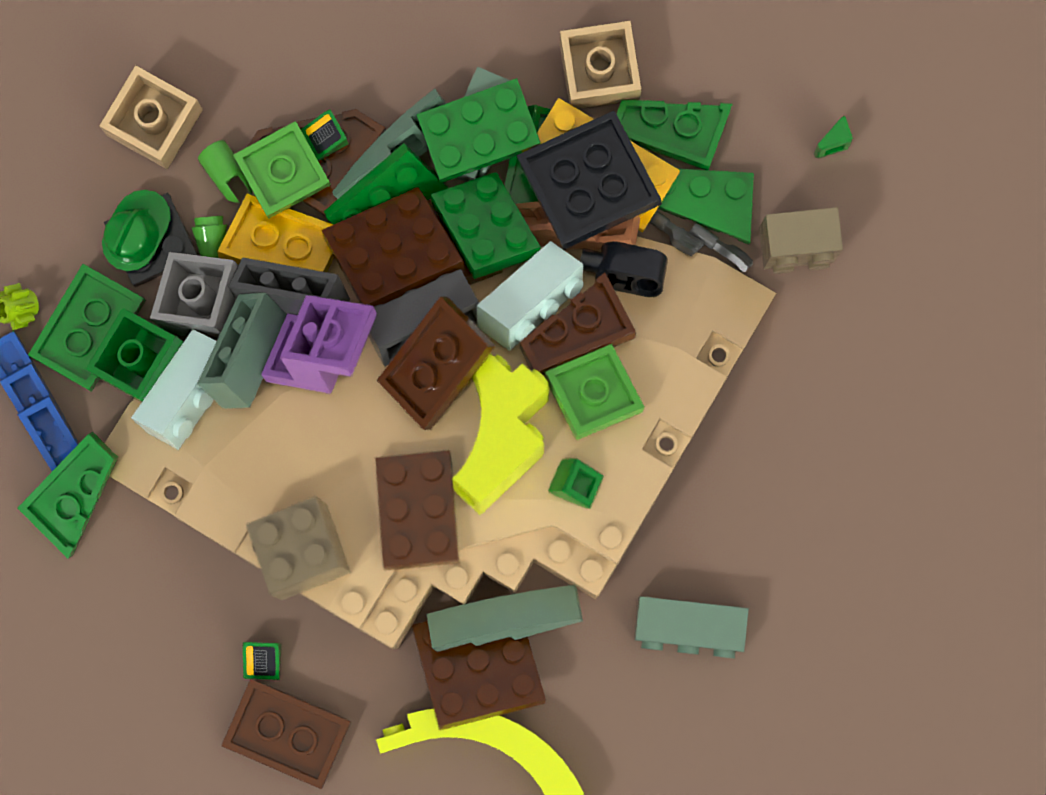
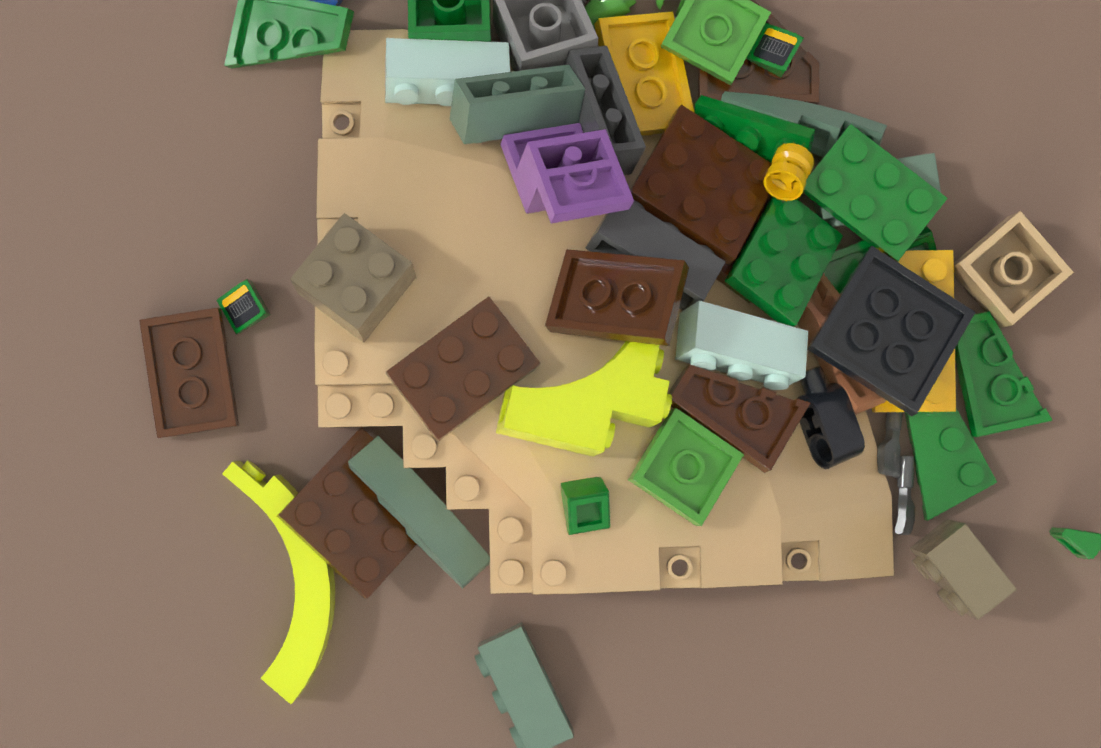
camera: 60 degrees right, 5 degrees up
(423, 181) = (788, 172): none -> yellow wheel

